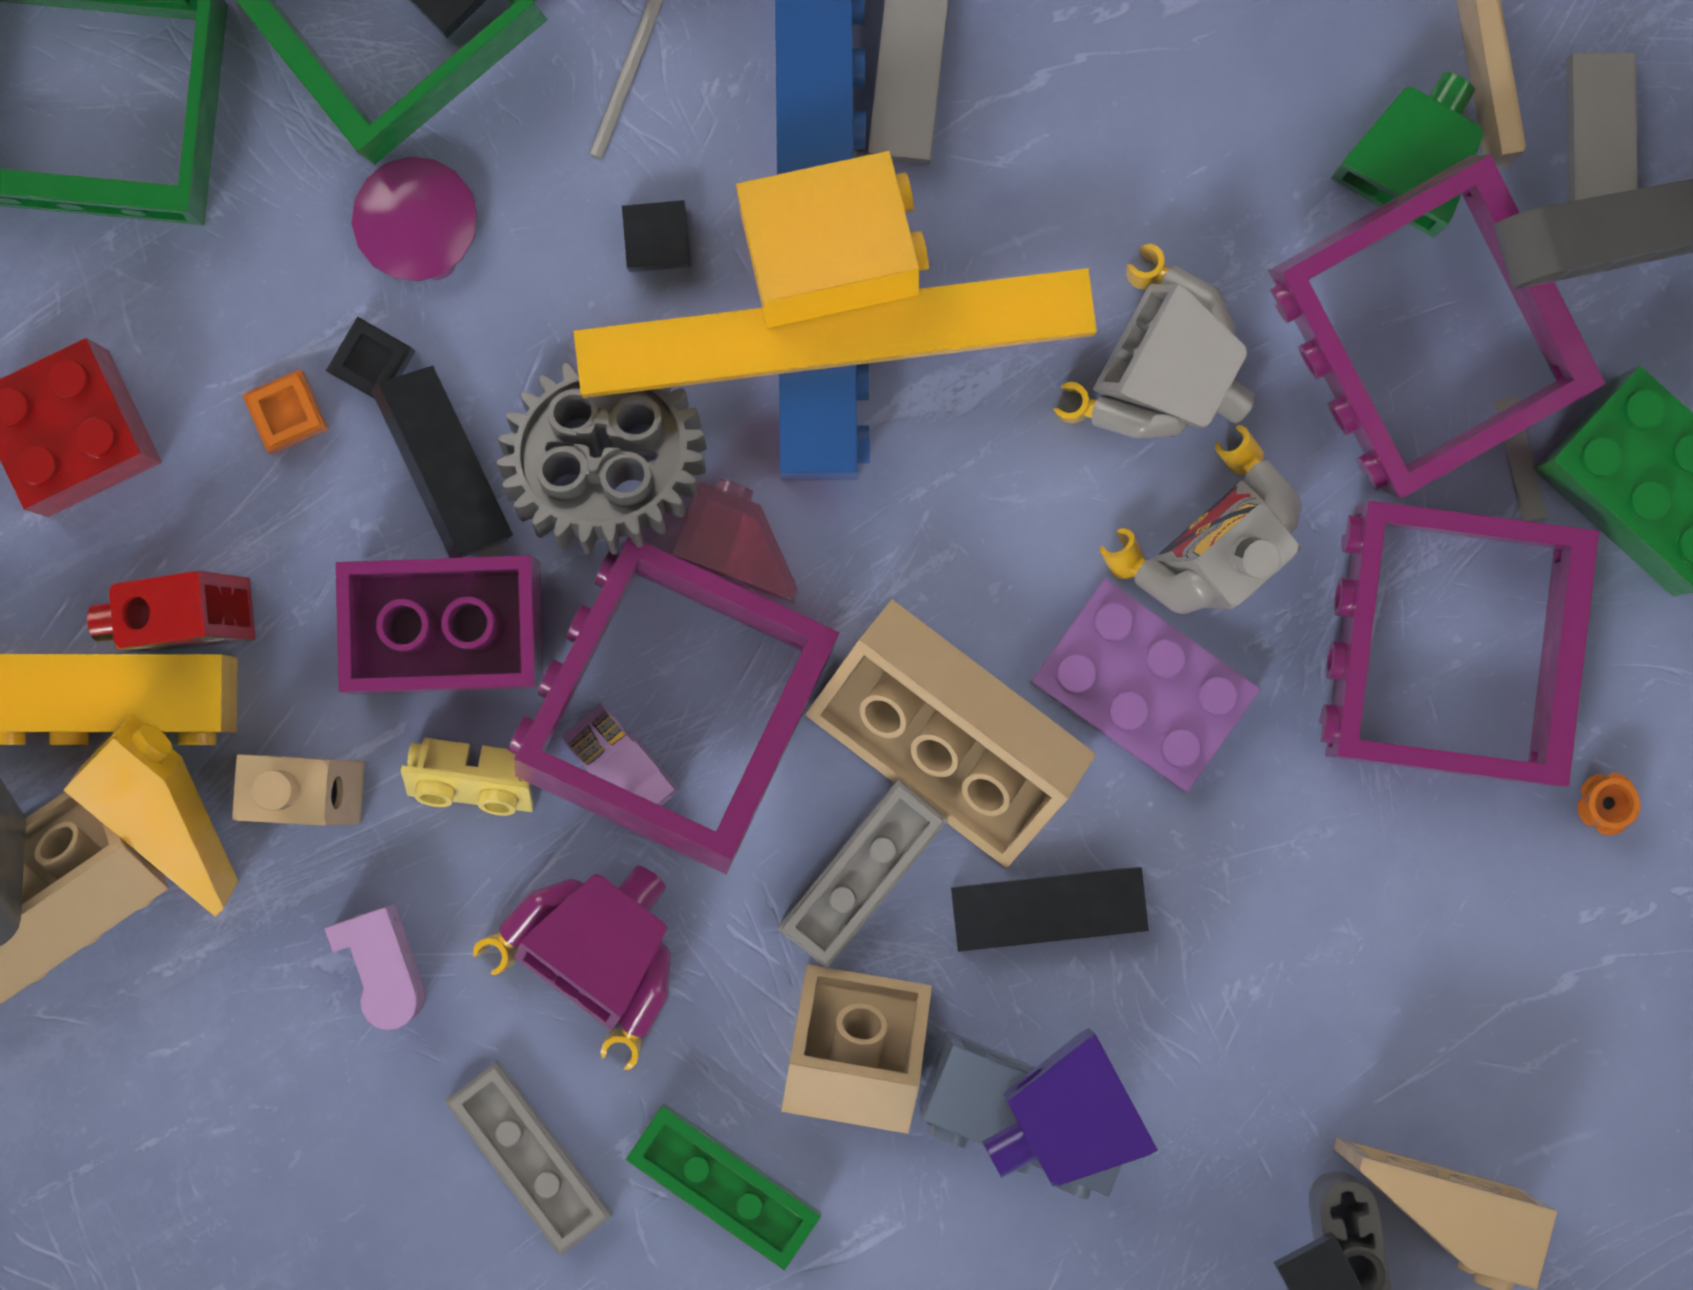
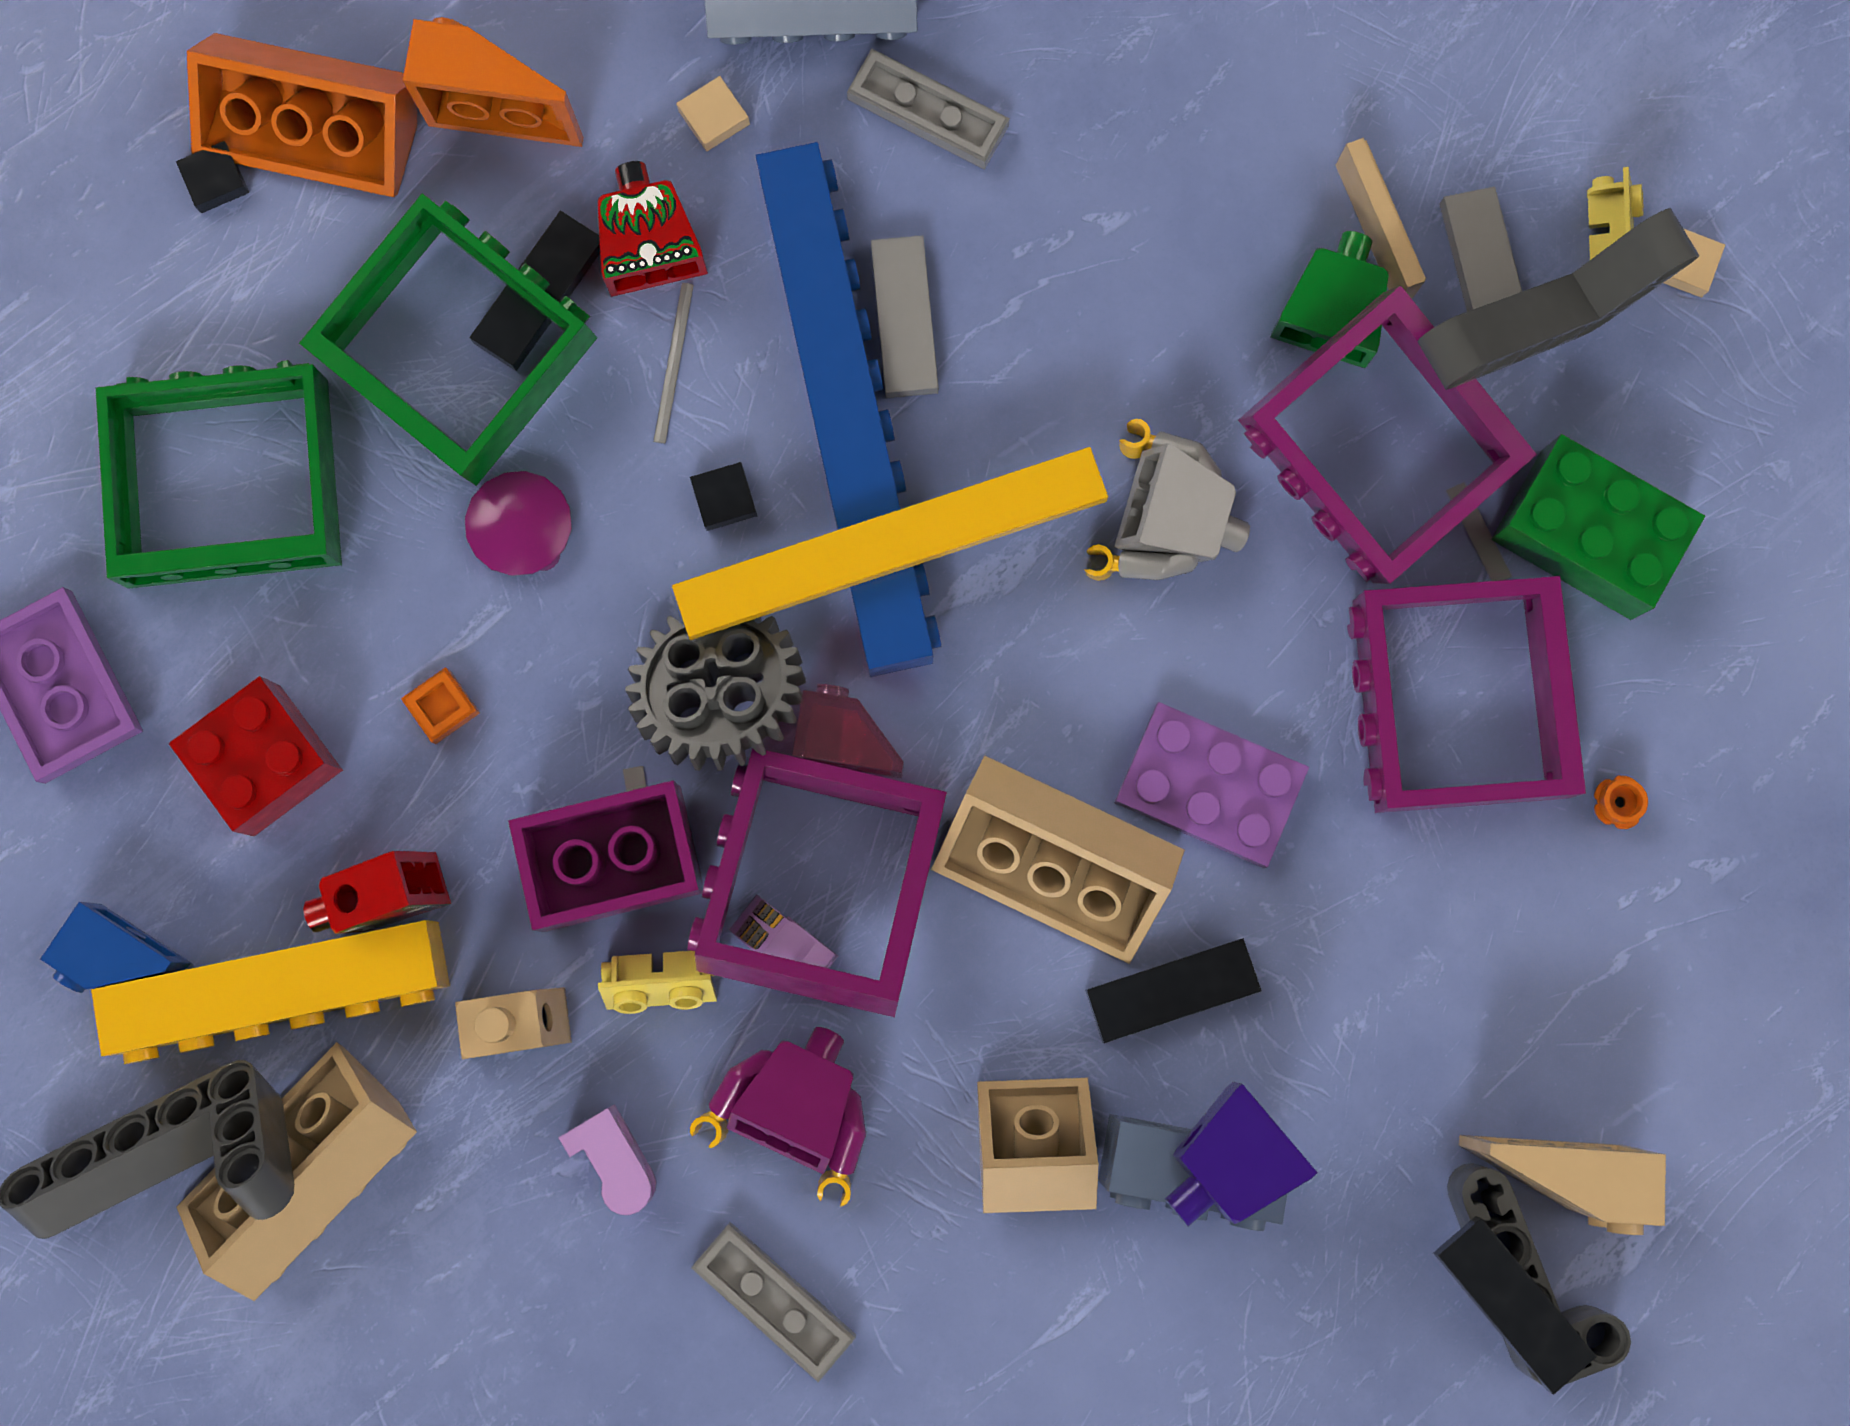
camera: 15 degrees left, 5 degrees down
(152, 804) = (389, 1060): yellow slope -> none
(369, 357) = (504, 648): black tile -> none
(442, 462) = (581, 720): black tile -> none
(724, 1186) = (947, 1290): green plate -> none
(831, 238) = (872, 464): yellow brick -> none
(862, 873) = (1008, 994): light grey tile -> none
(1225, 549) = (1254, 656): light grey torso -> none

